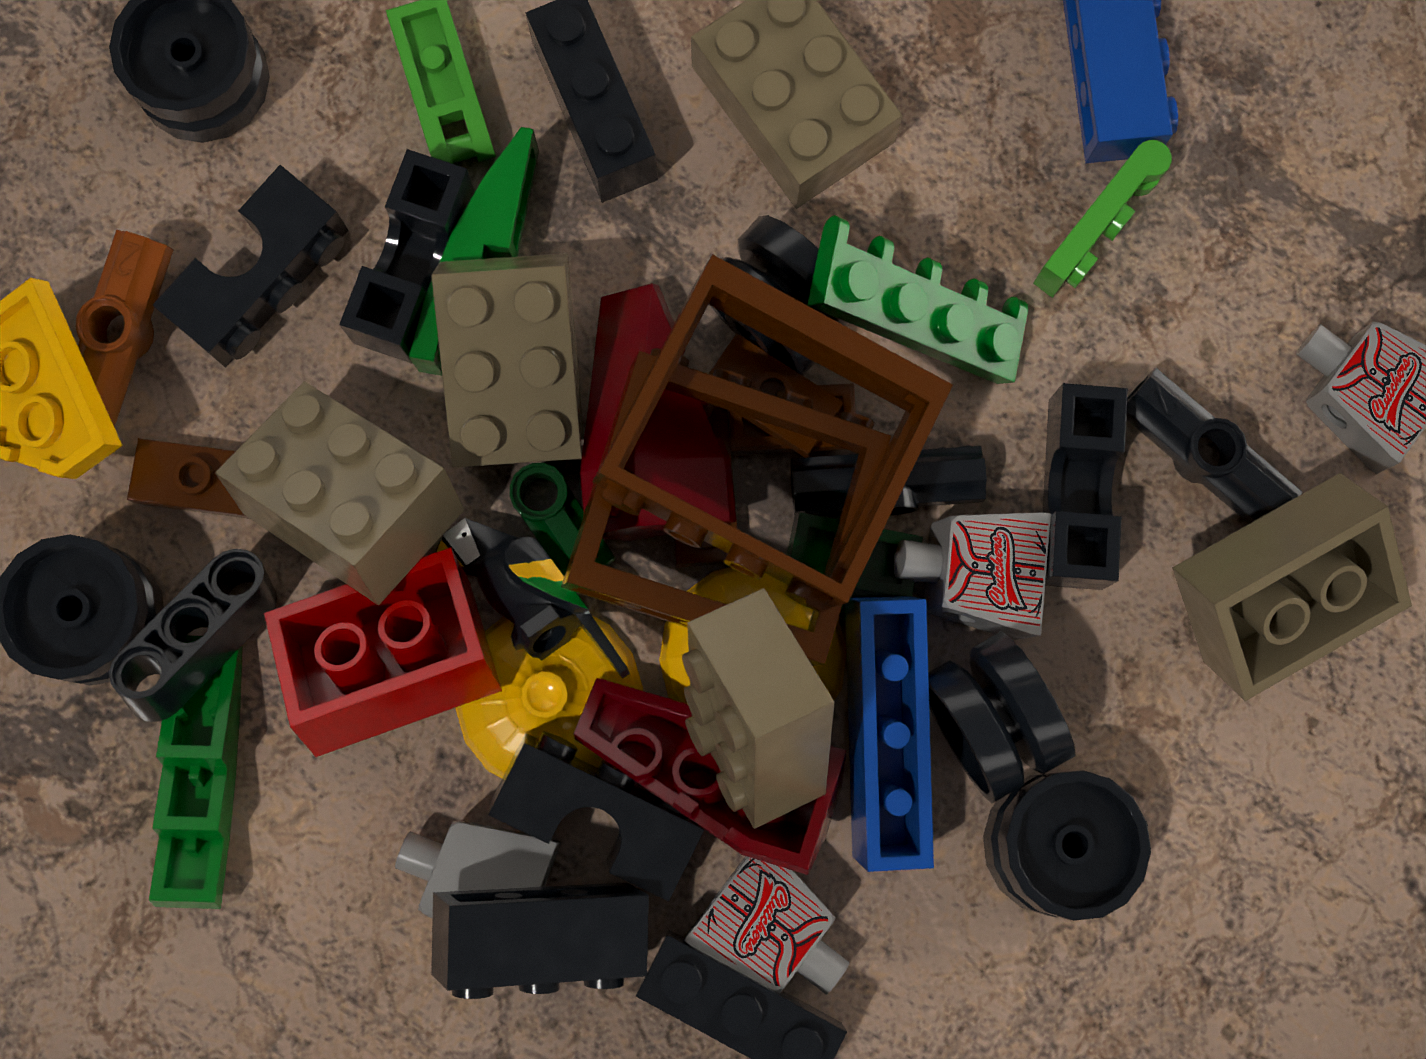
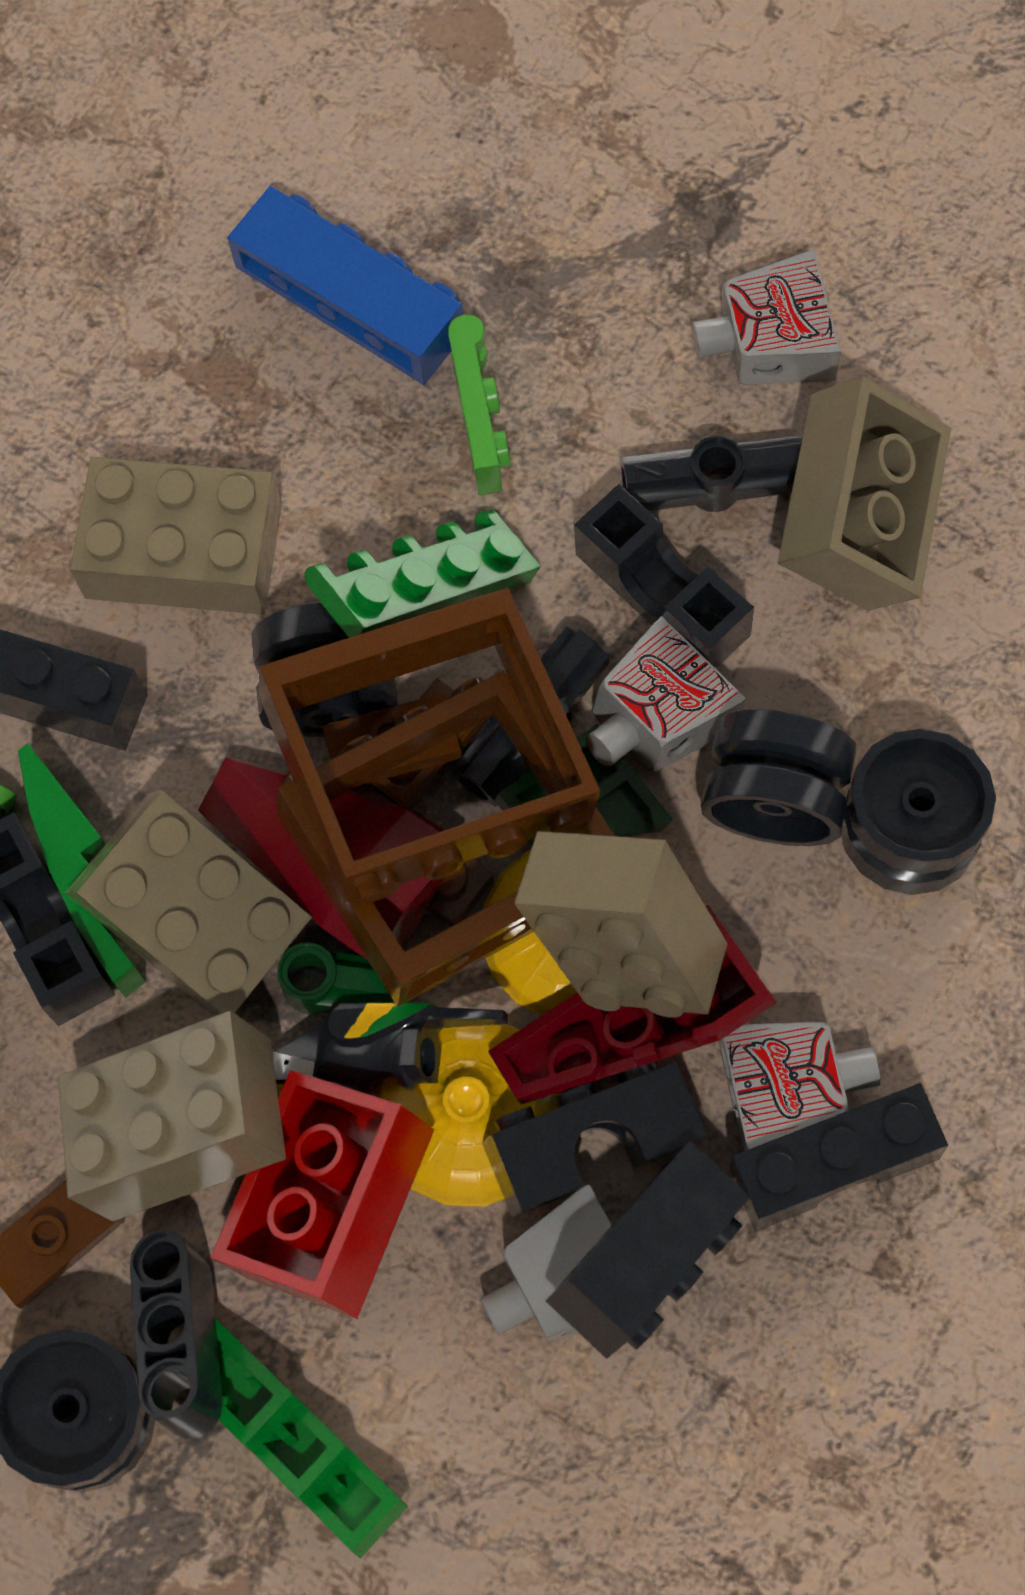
camera: 40 degrees left, 10 degrees down
(889, 733) = (728, 865): blue brick -> none

